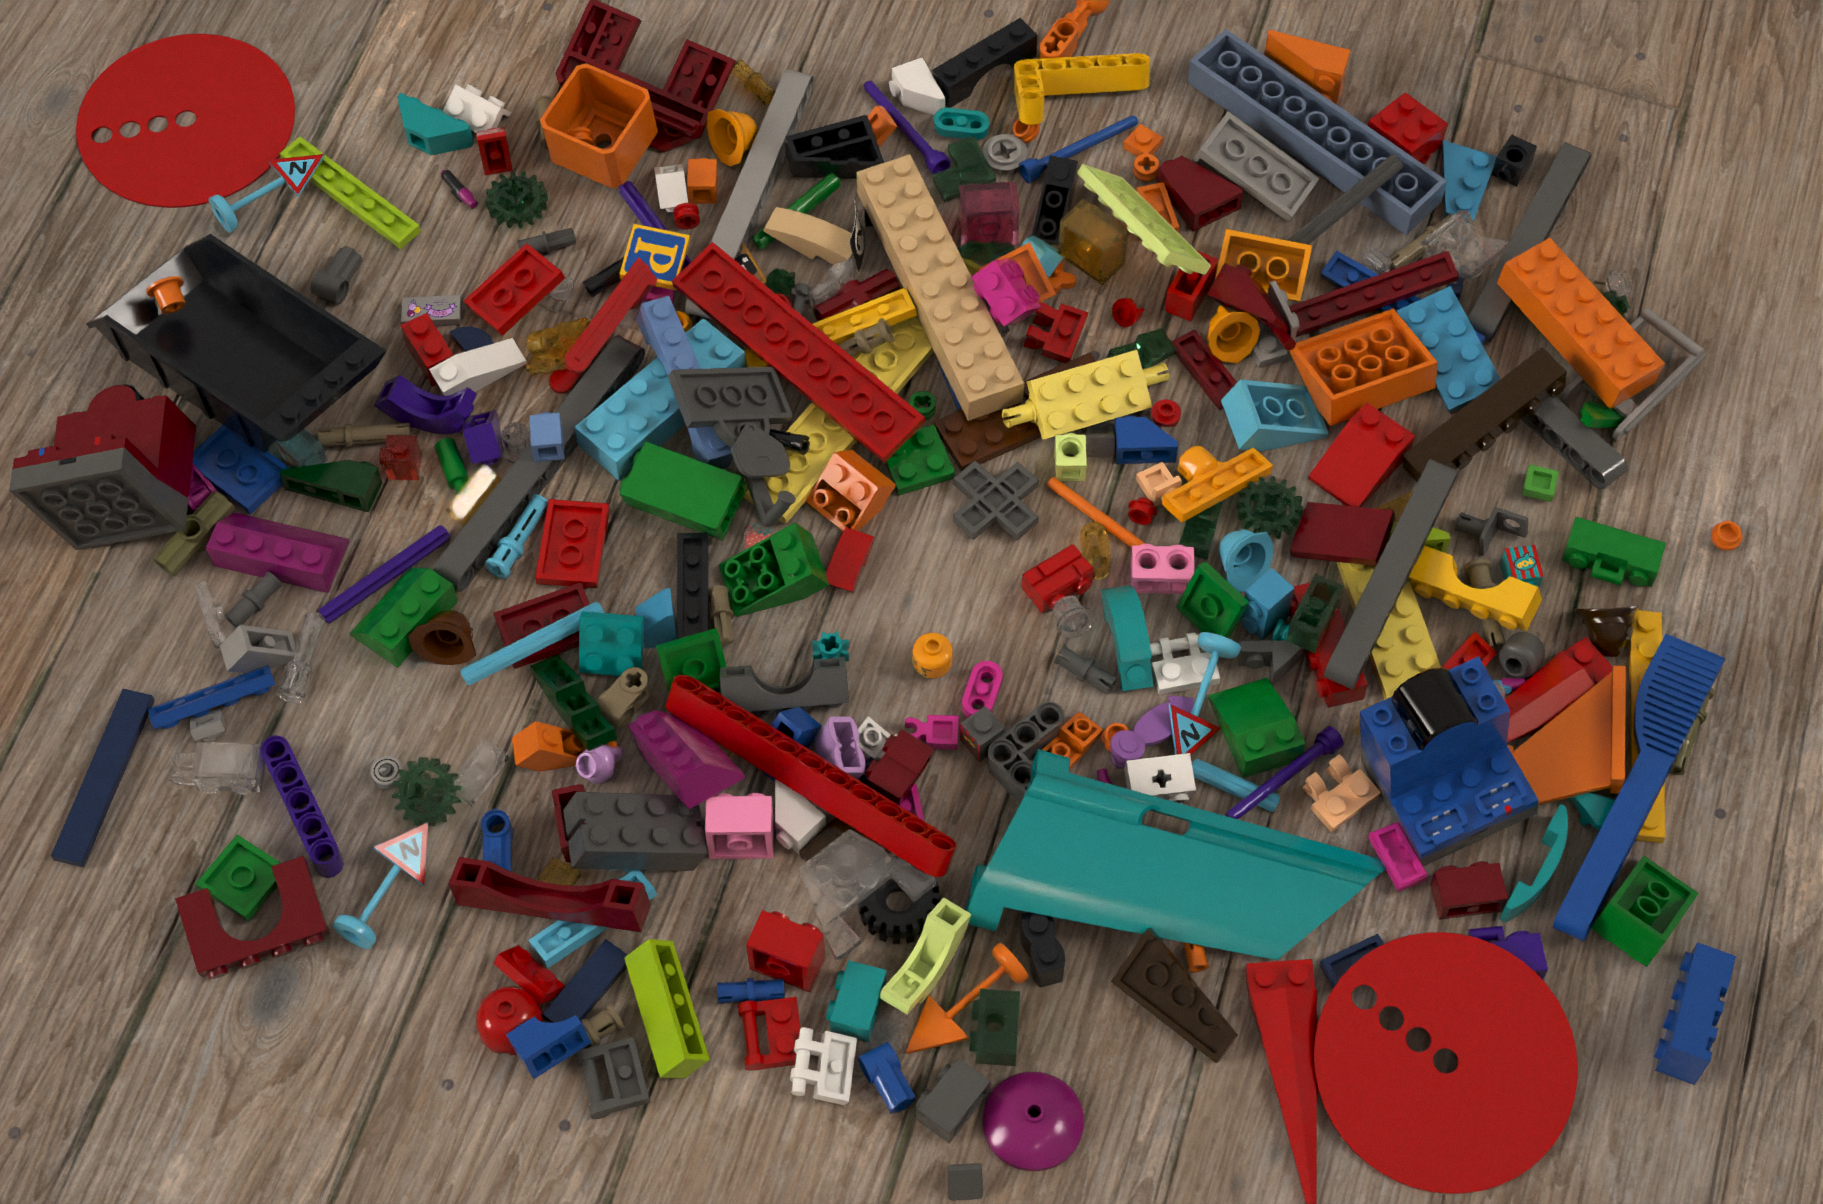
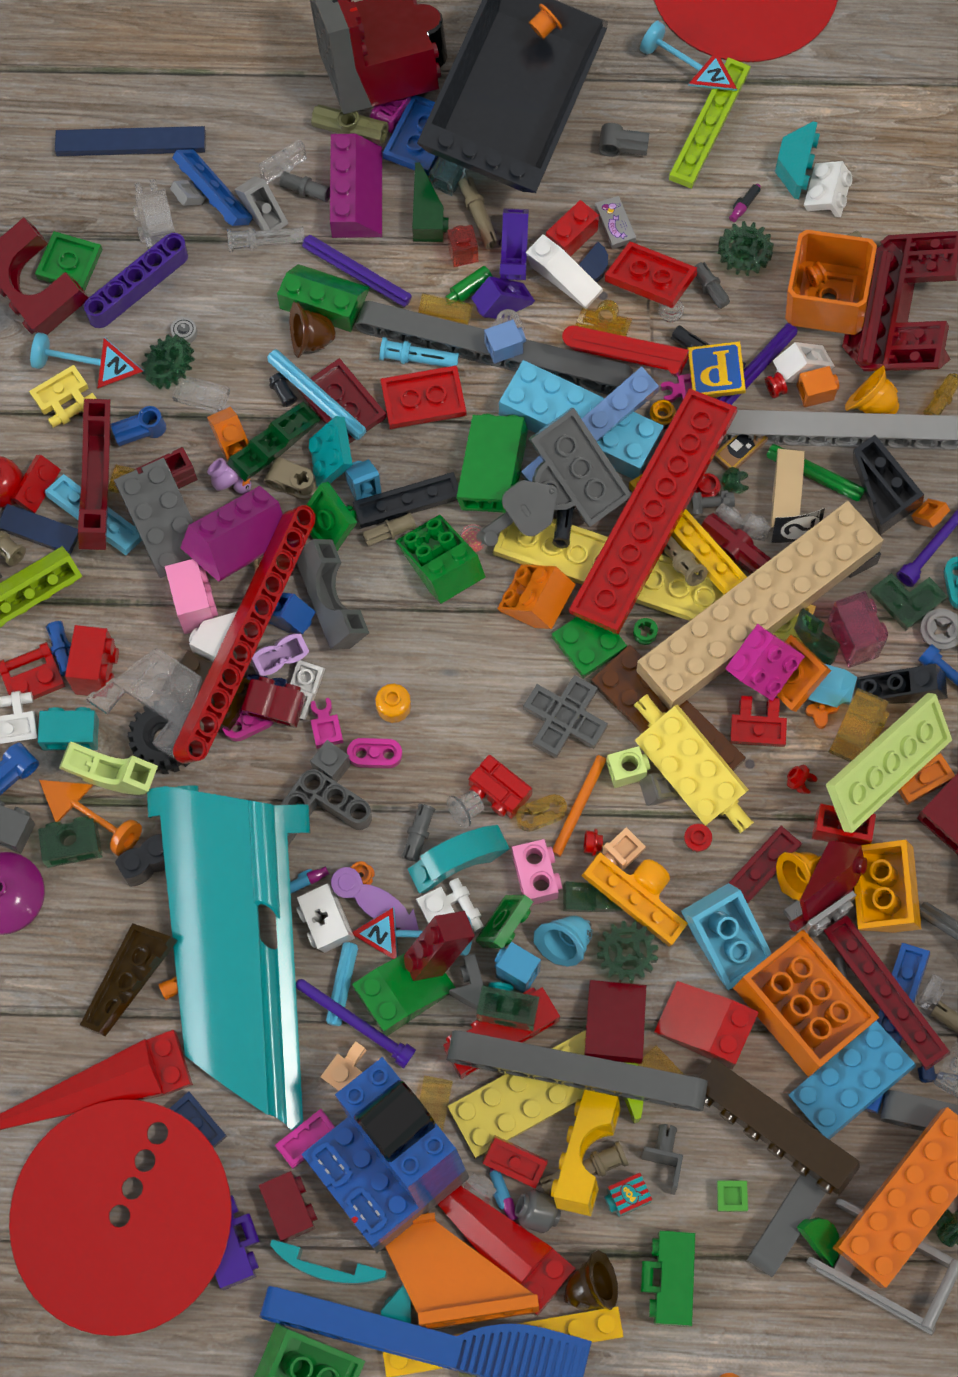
camera: 75 degrees right, 10 degrees up
(413, 923) = (59, 390): none -> light yellow plate
(494, 151) = (789, 212): red slope -> none
(507, 683) = (283, 390): none -> black pin
(830, 646) = (386, 623): teal gear -> none
(848, 559) = (471, 612): red slope -> none
(1075, 738) = (344, 838): orange slope -> none
(1142, 442) = (662, 821): blue slope -> none
(1151, 347) = (763, 805): clear green slope -> none
(1231, 660) = (438, 945): none -> dark red brick

